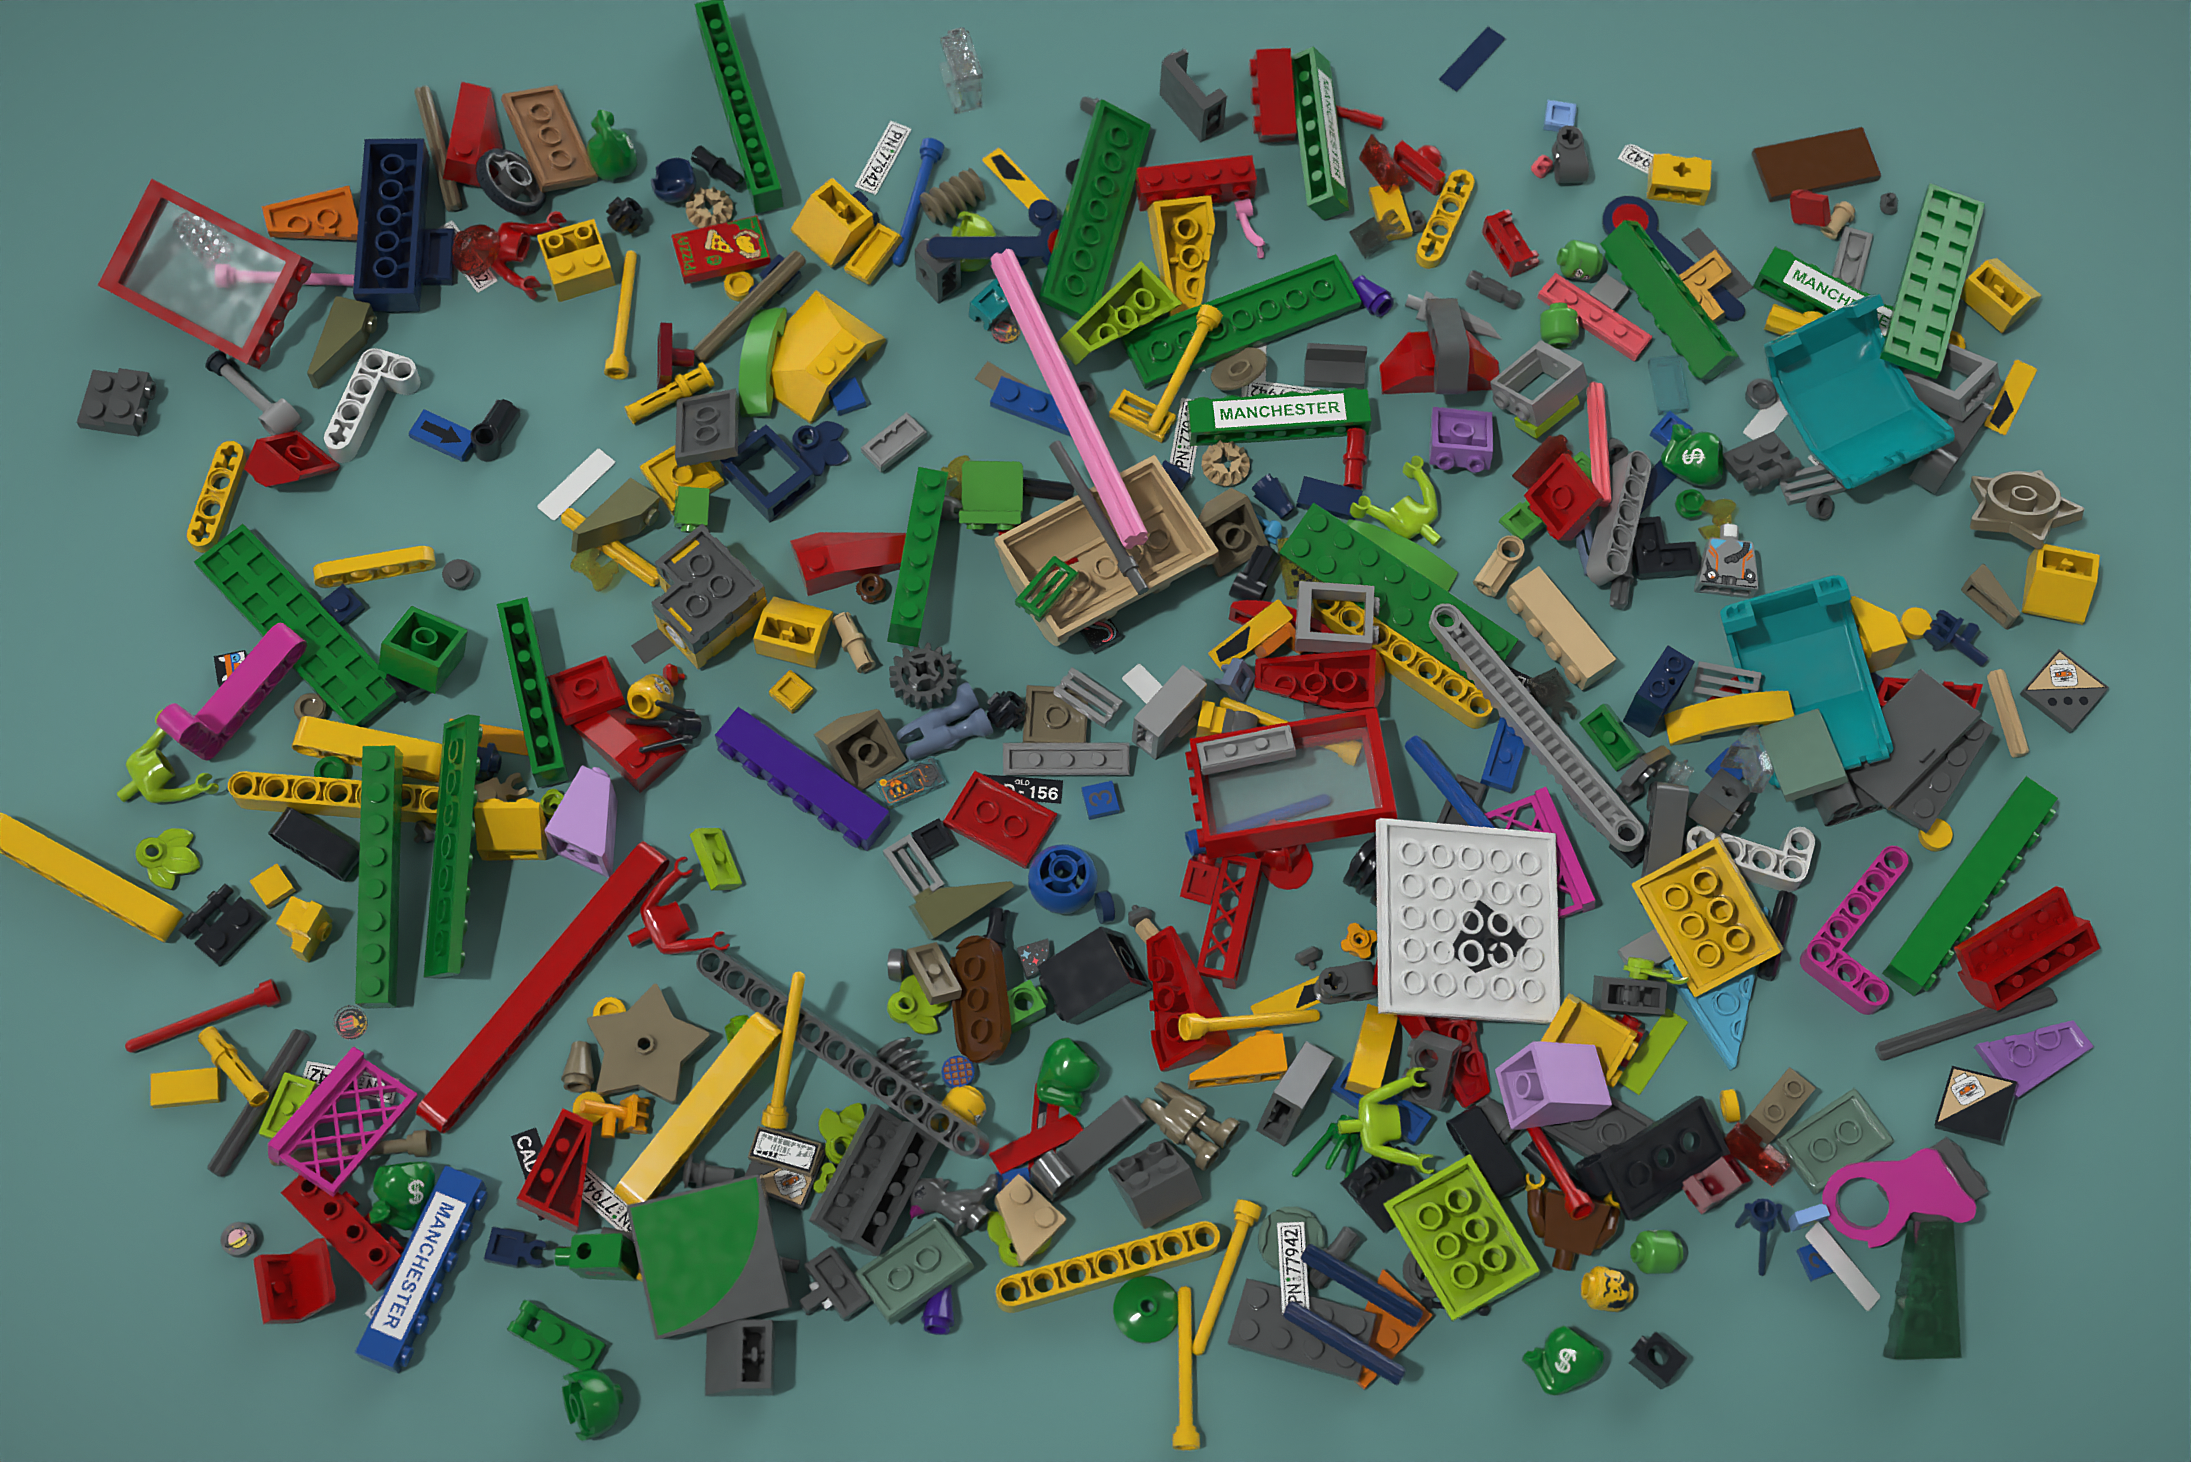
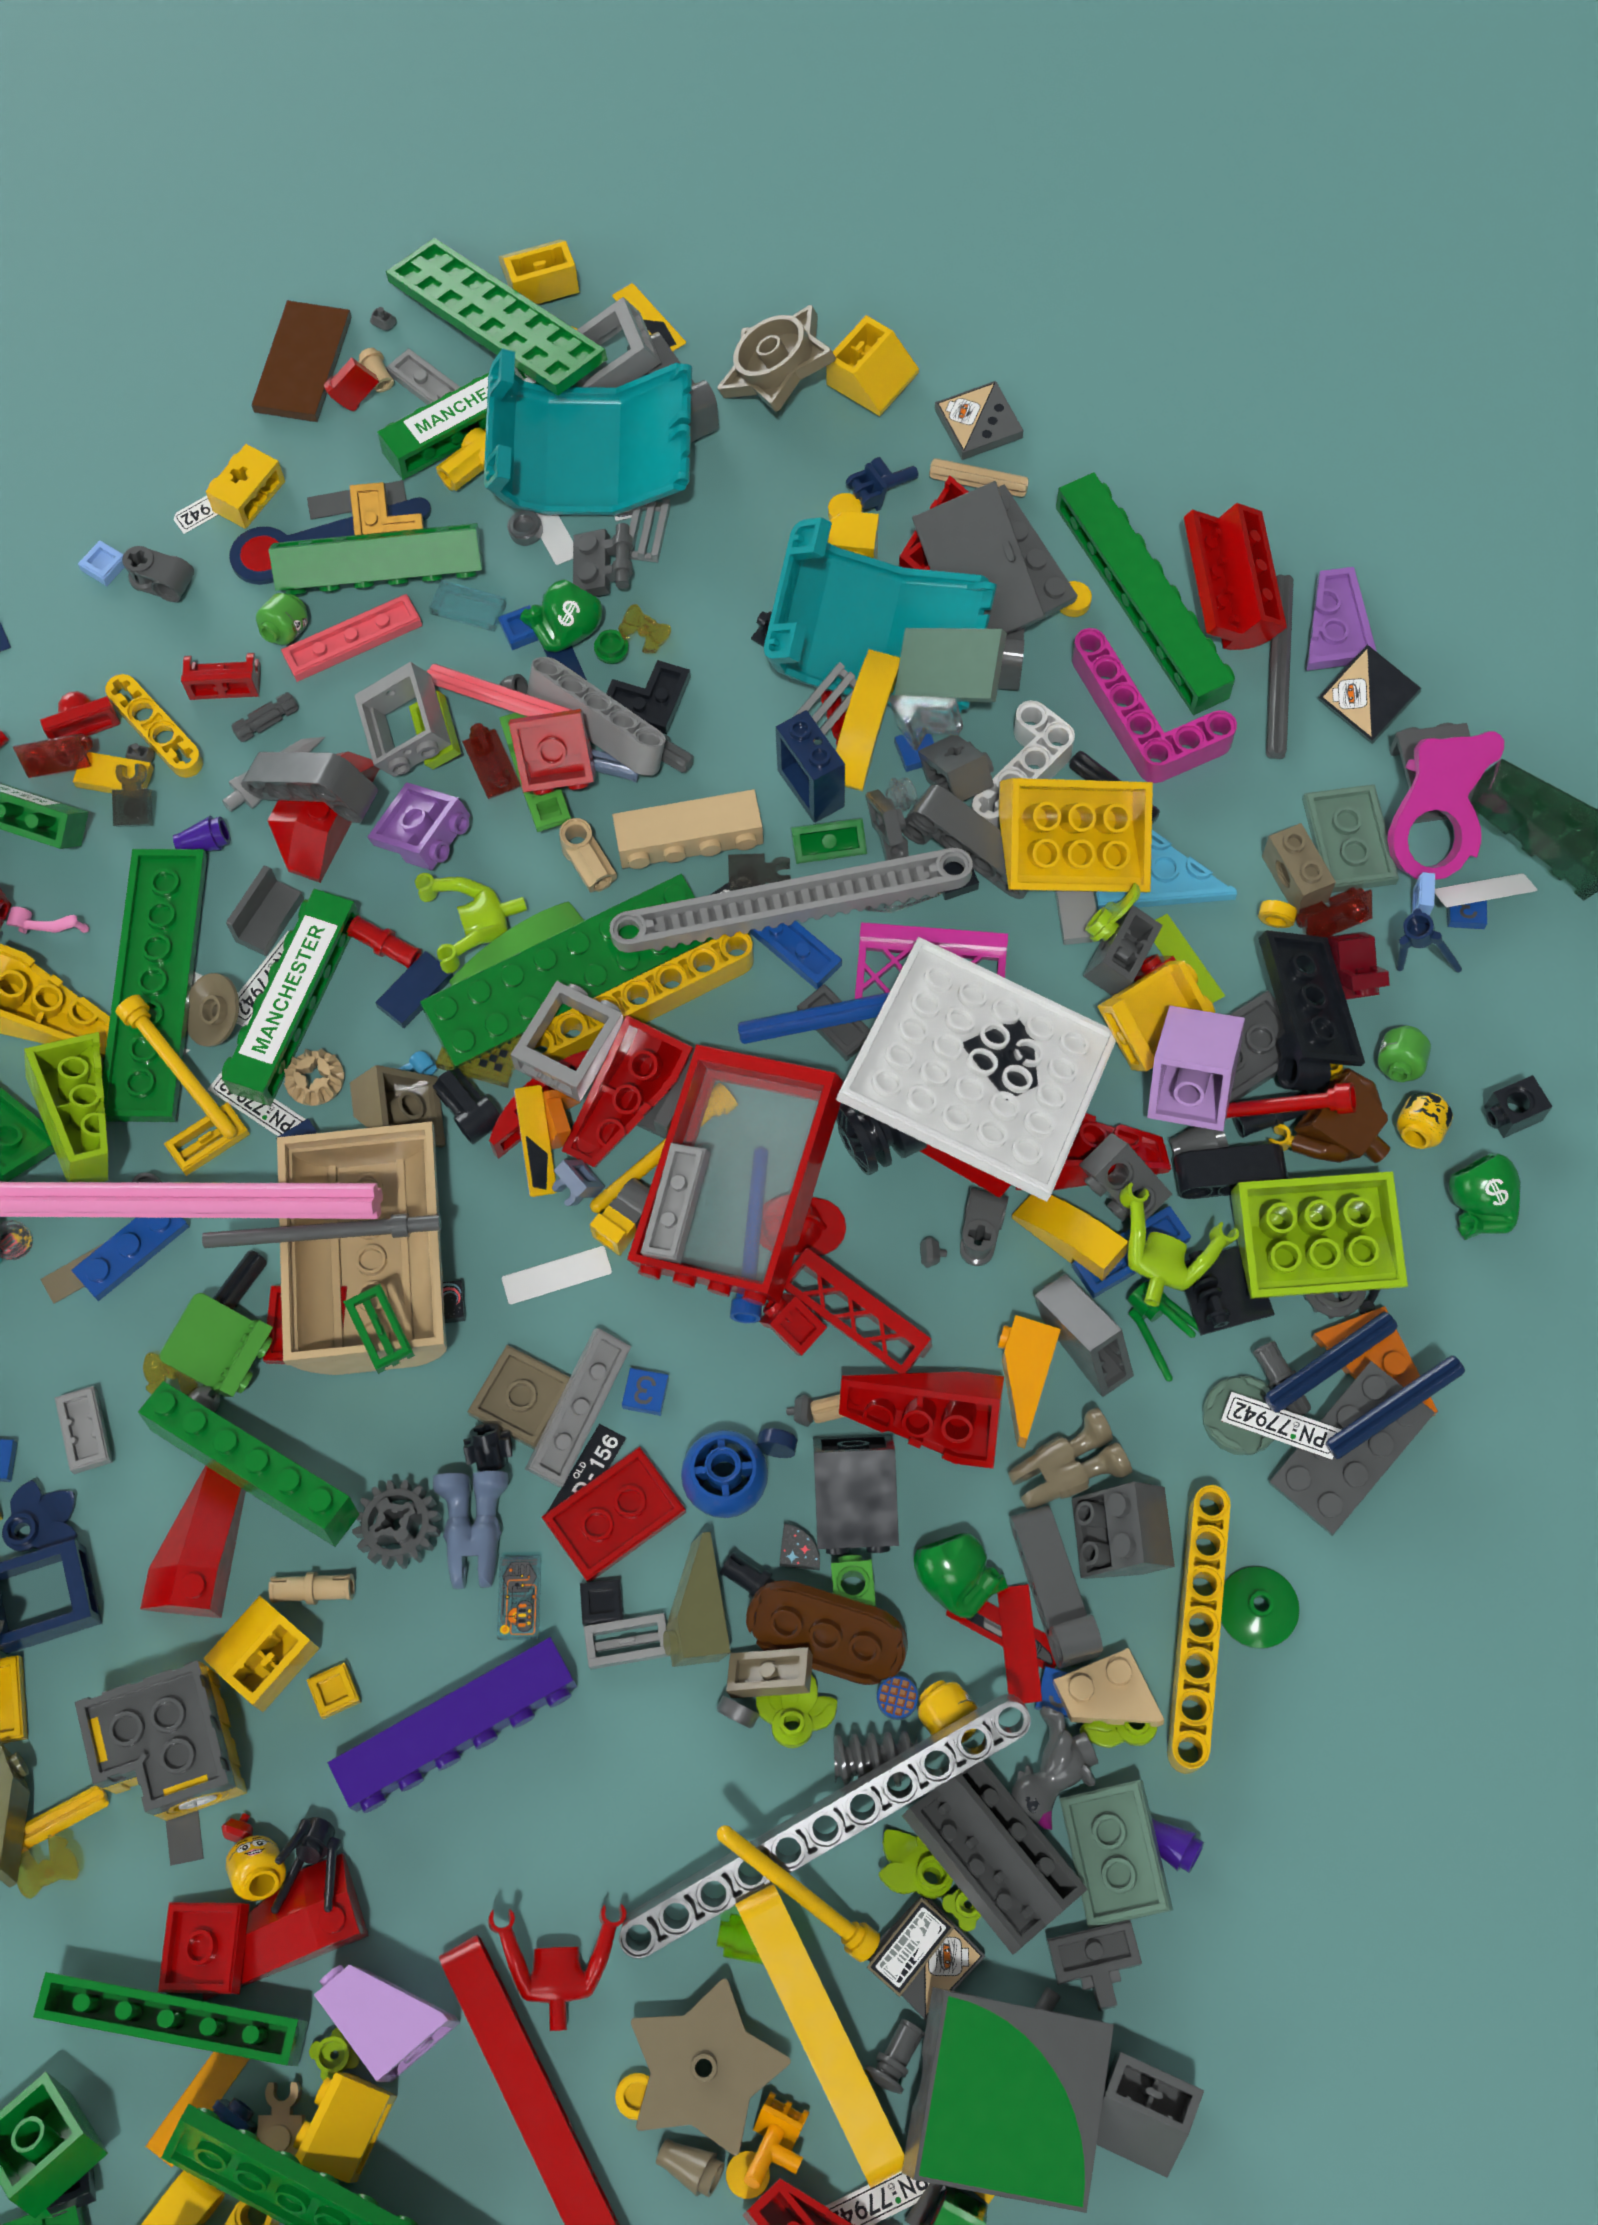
camera: 60 degrees left, 0 degrees up
(691, 508) = (37, 1710): bright green brick -> none
(715, 859) = (503, 1875): lime plate -> none
(860, 747) = (449, 1638): dark tan slope -> none
(871, 580) = (247, 1530): reddish brown plate -> none
(1108, 697) = (513, 1336): light grey tile -> none
(1169, 711) = (585, 1265): light grey window -> none
(1185, 1436) = (1420, 1626): yellow piece -> none
(1194, 1026) = (977, 1401): yellow piece -> none
(1245, 1215) = (1199, 1451): yellow piece -> none
(1272, 495) = (378, 1044): dark blue cone -> none
(1292, 999) = (971, 1297): yellow sticker -> none
(1359, 950) = (935, 1201): light orange plate -> none
(1542, 166) = (150, 606): coral rock -> none
(1559, 325) = (345, 672): bright green head -> none
(1609, 292) = (332, 609): light grey tile -> none
(1728, 566) = (700, 642): light grey torso -> none
(1819, 506) = (677, 533): dark grey hinge -> none
(1990, 596) = (853, 431): dark tan slope -> none

